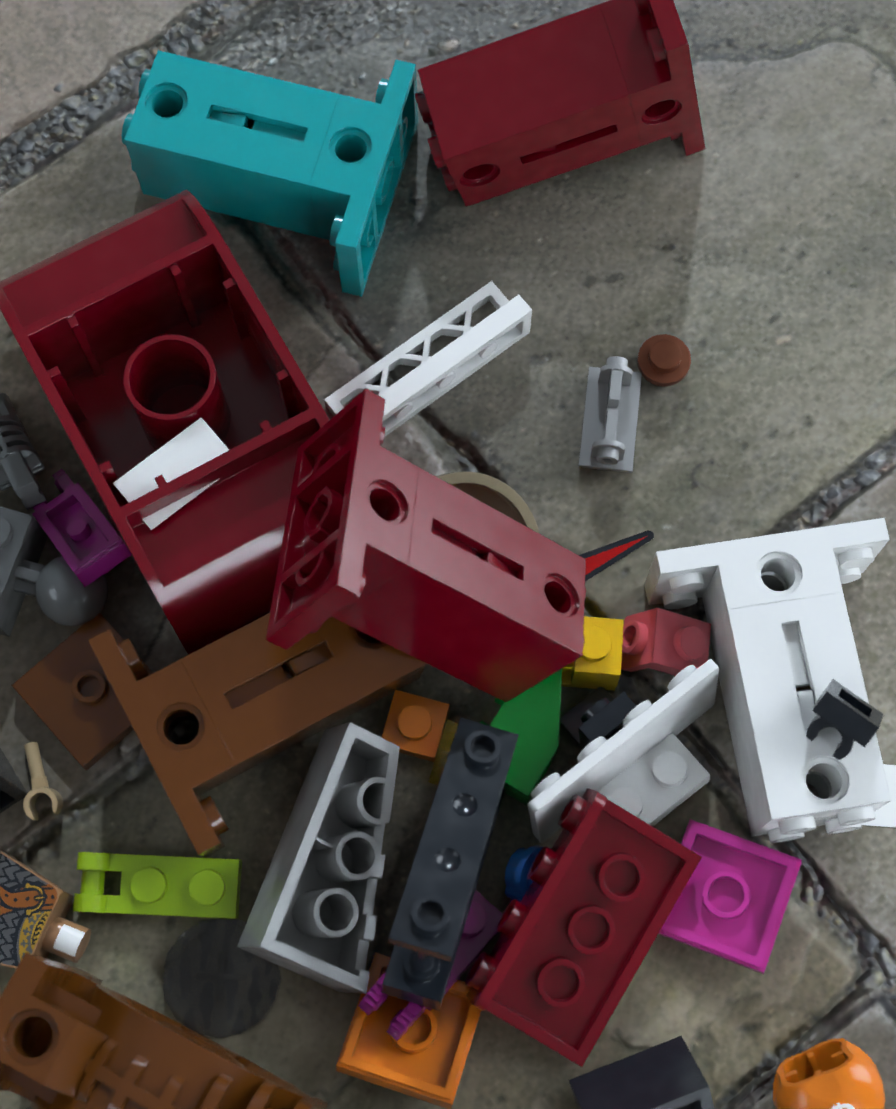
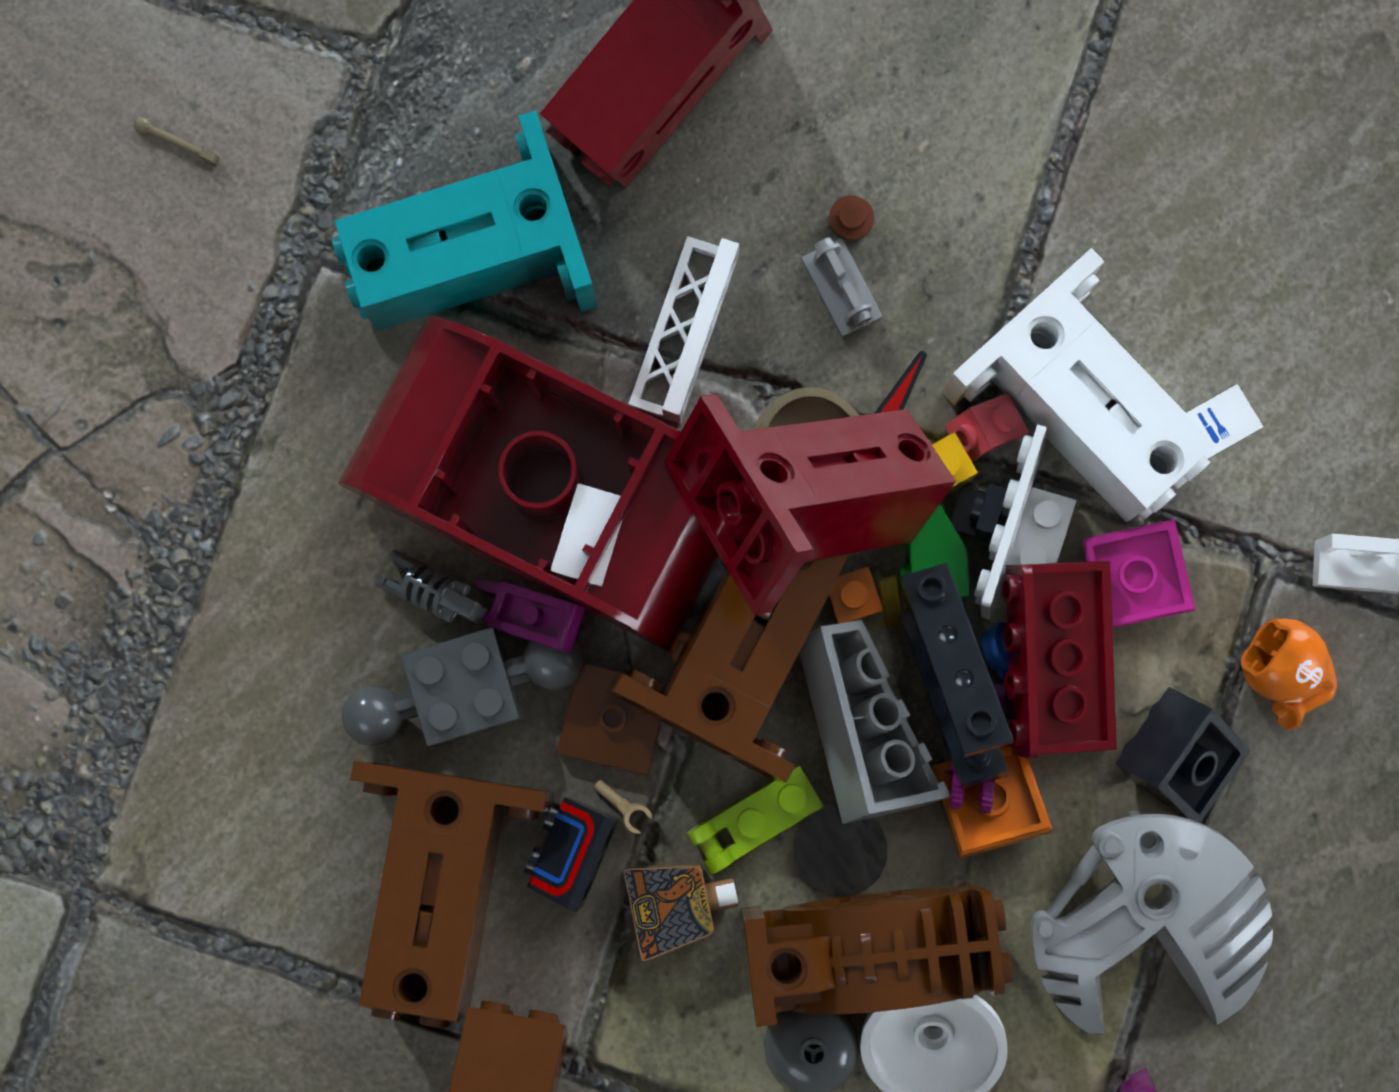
camera: 30 degrees left, 10 degrees up
(846, 713) = (1156, 406): black tile -> none

